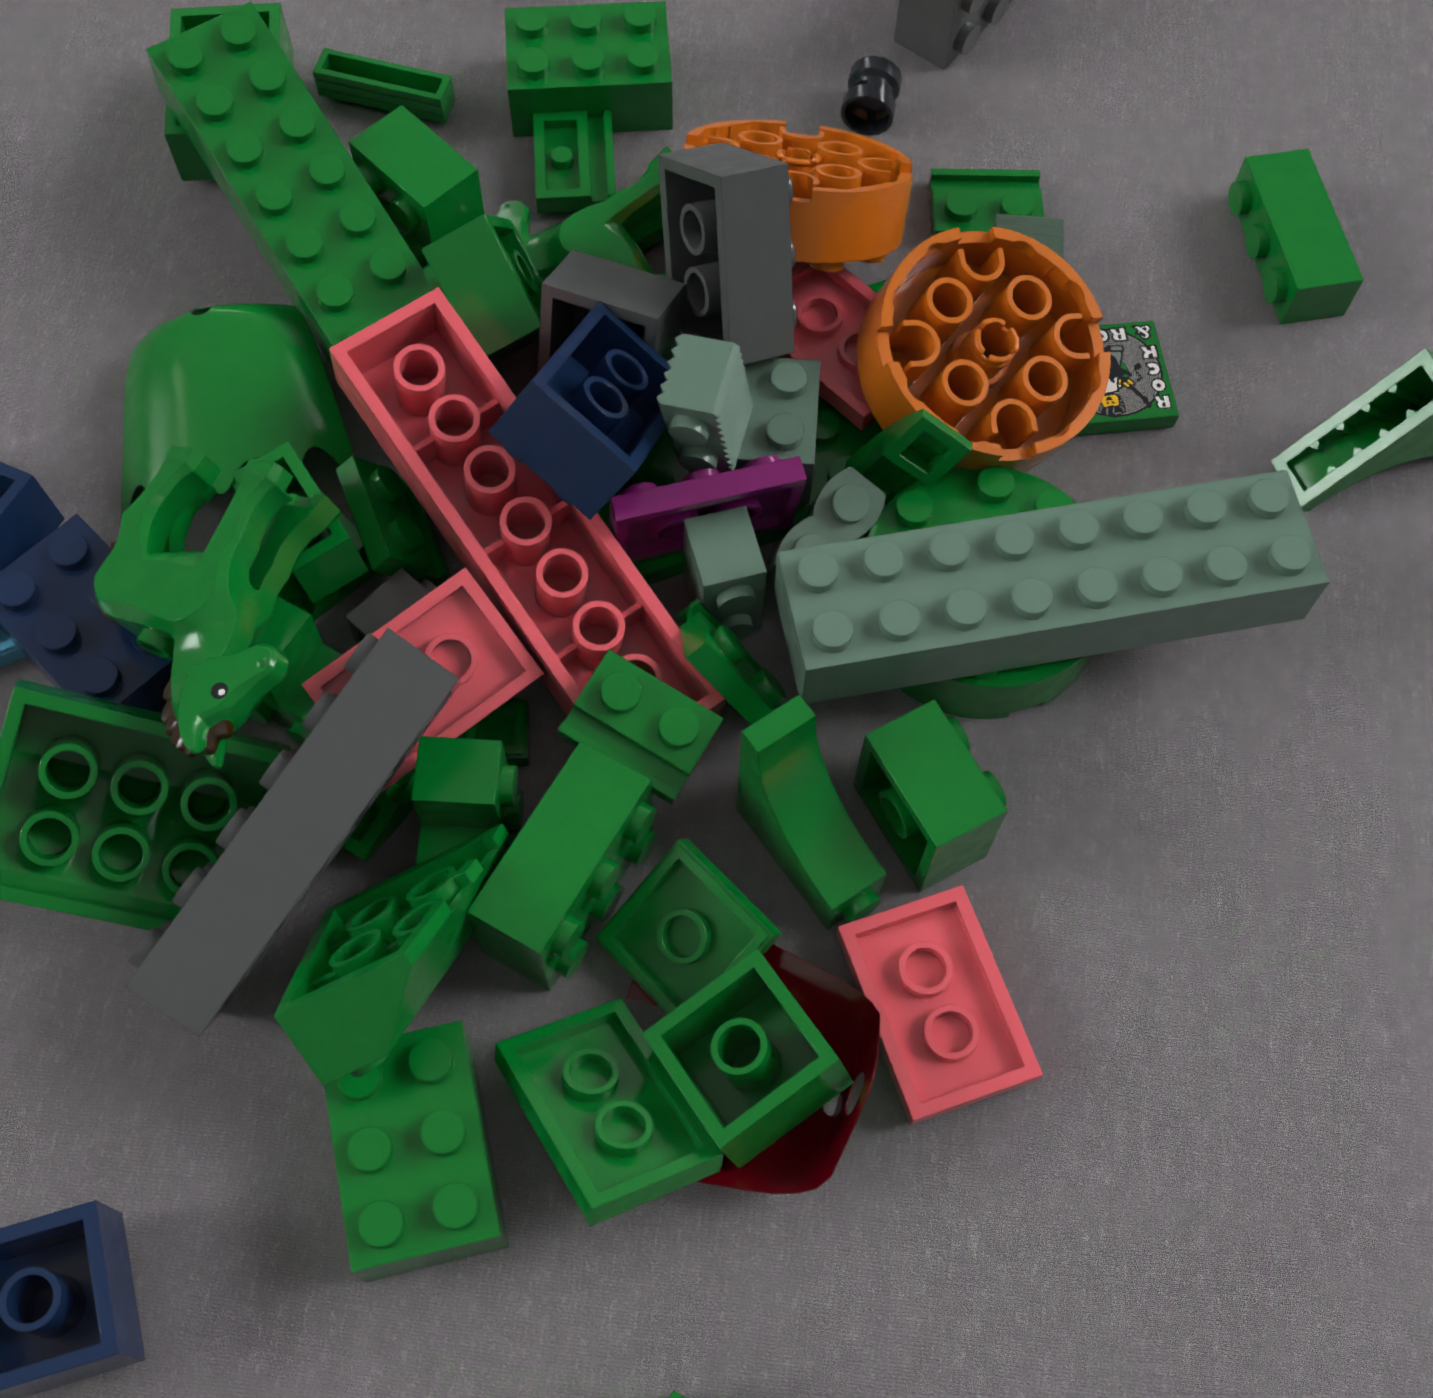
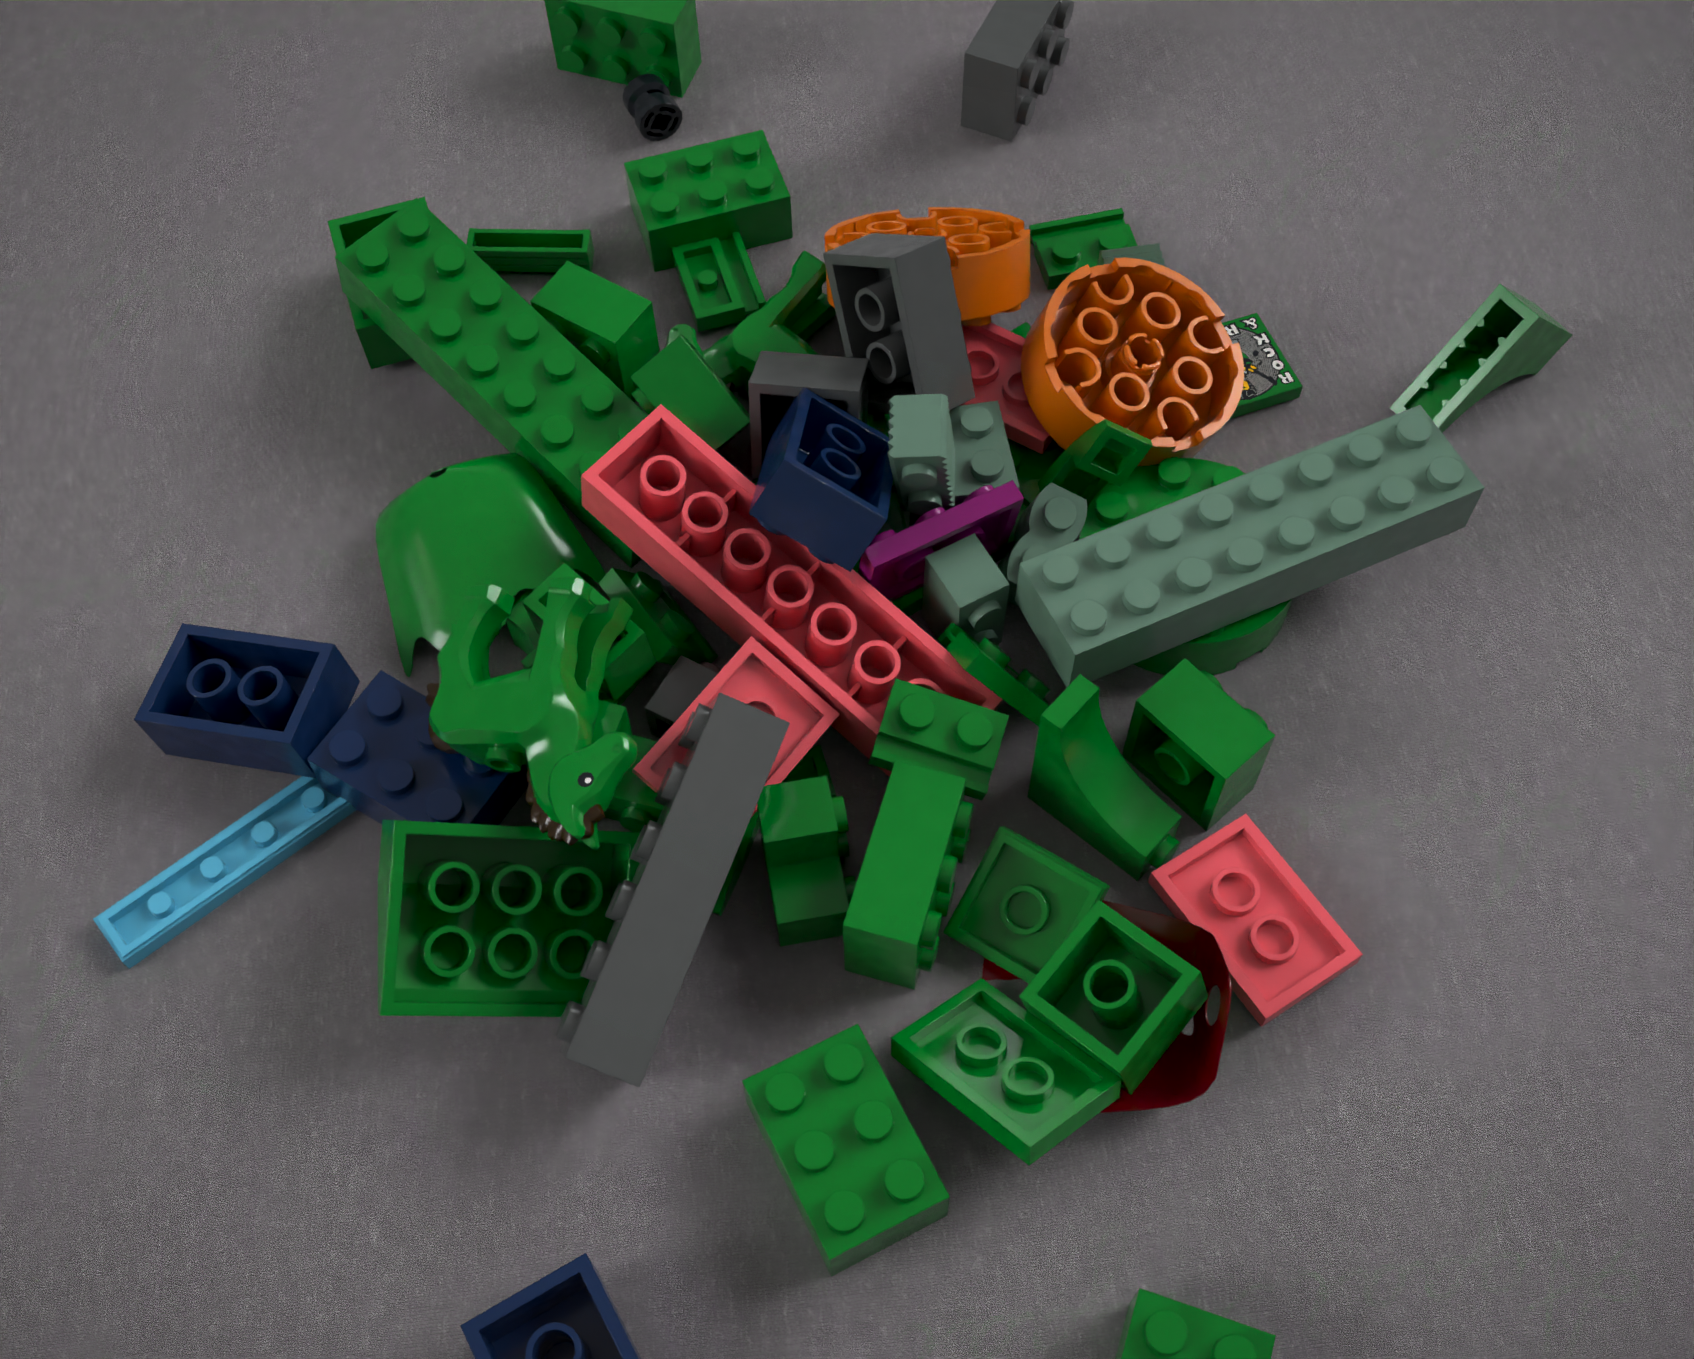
camera: 10 degrees left, 5 degrees down
(382, 958) = (778, 980): green wedge -> none
(871, 95) = (959, 173): black wheel -> none
(1294, 236) = (1353, 219): green brick -> none

